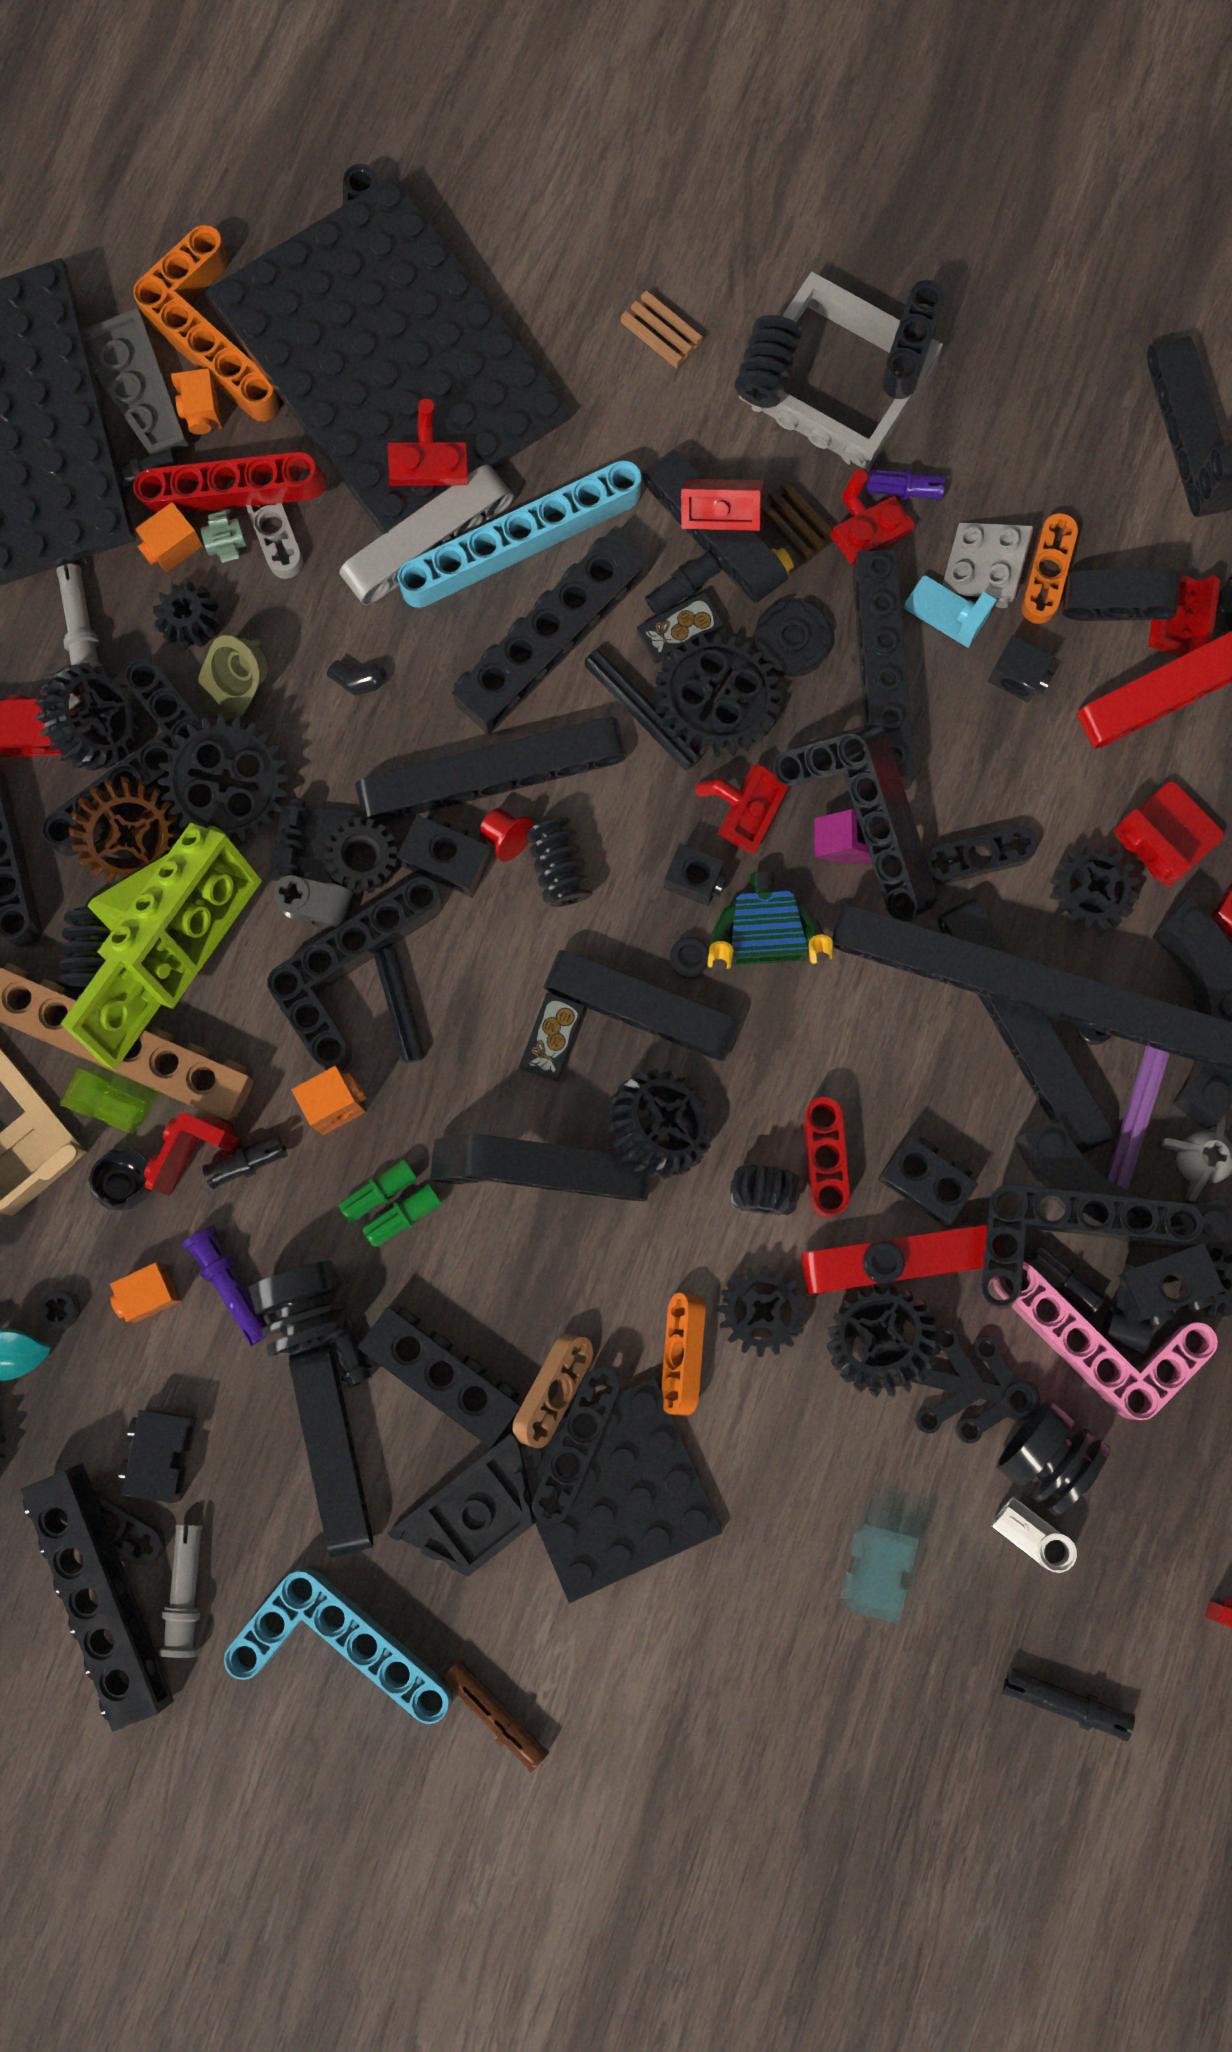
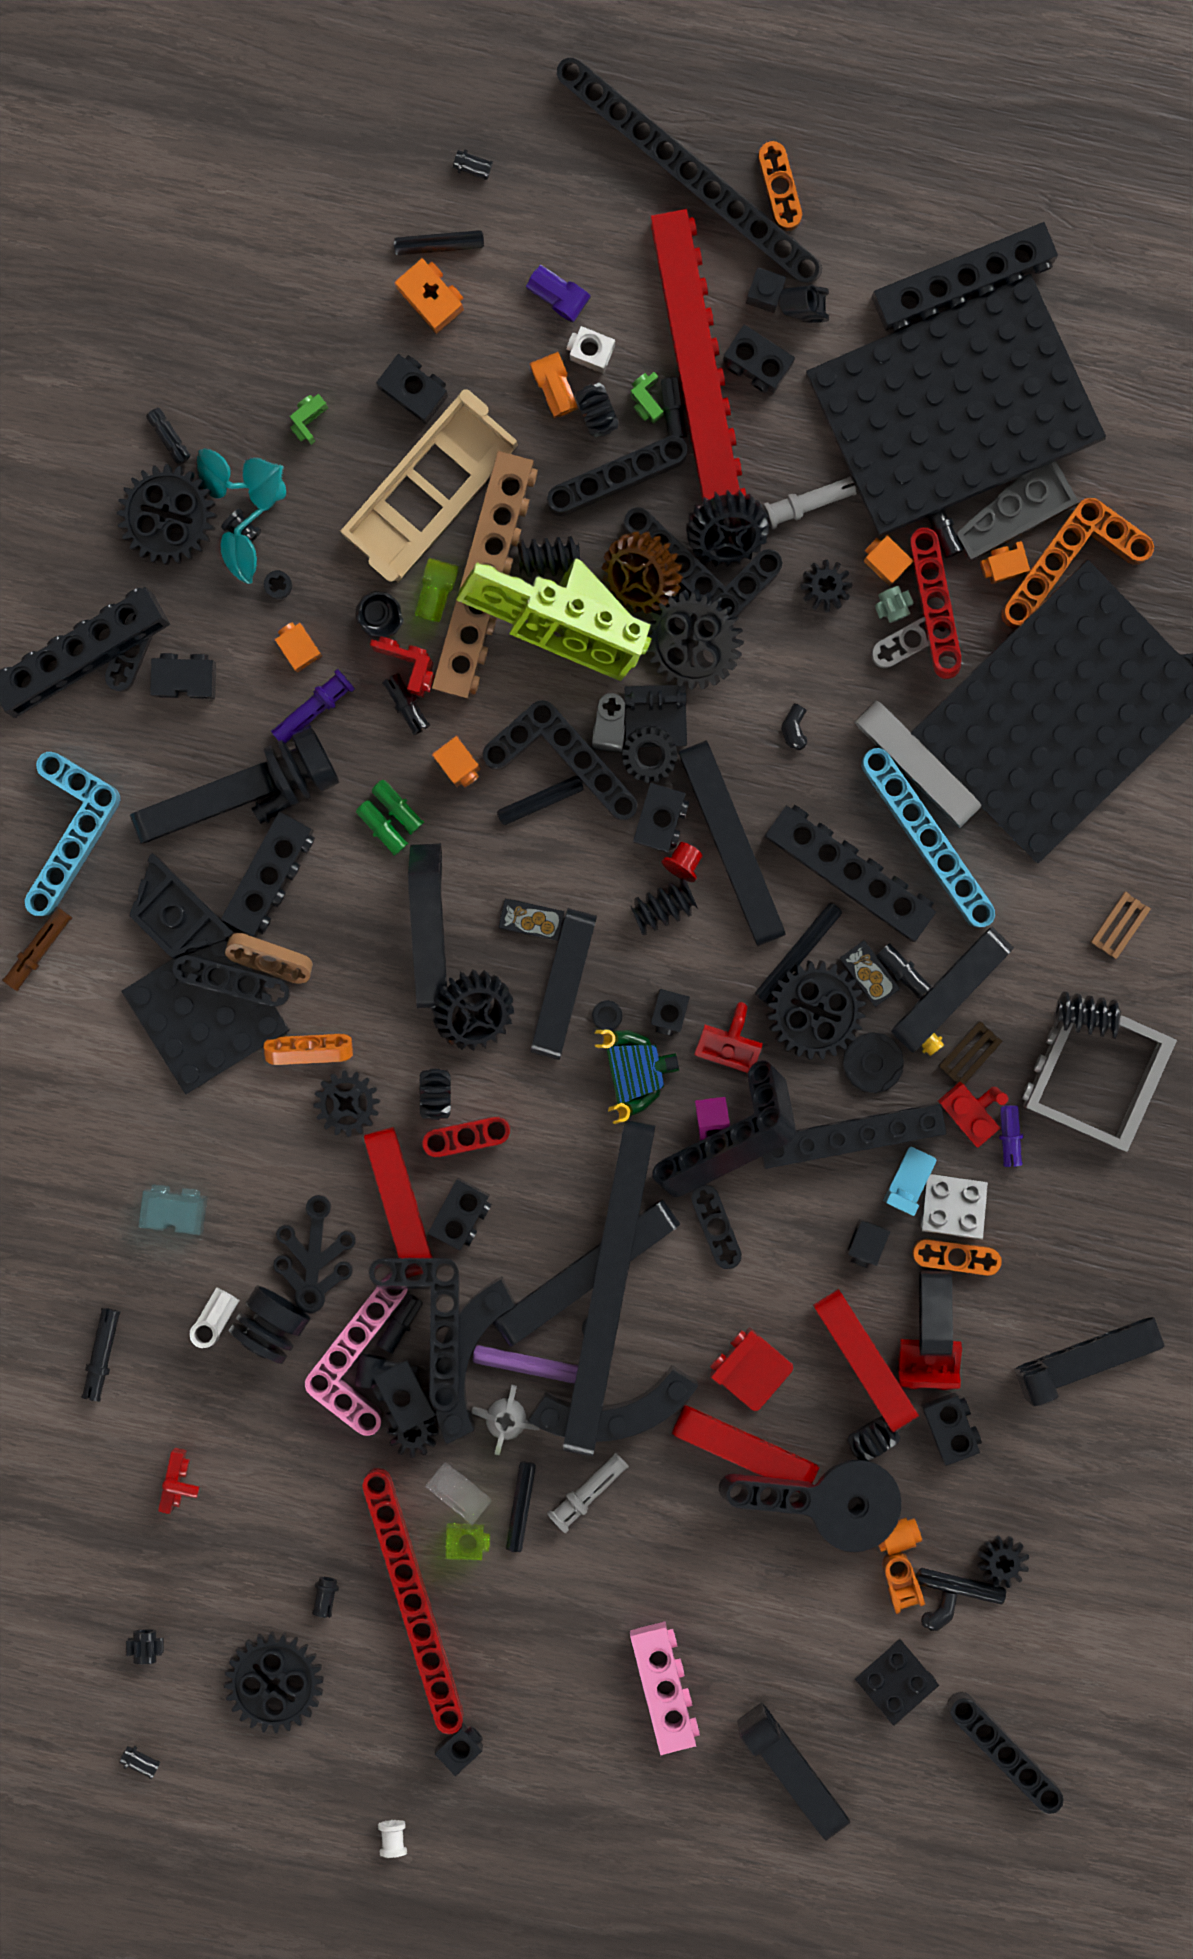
camera: 80 degrees right, 10 degrees up
(181, 1612) = (76, 713): light grey pin -> none
(232, 675) = (779, 631): olive piece -> none
(427, 461) = (971, 757): red plate -> none
(721, 504) = (963, 994): panel -> none
(883, 1262) = (392, 1187): black tile -> none
(893, 1313) = (359, 1200): black gear -> none
(915, 323) = (1136, 1130): black beam -> none
(1100, 902) = (688, 1325): black gear -> none

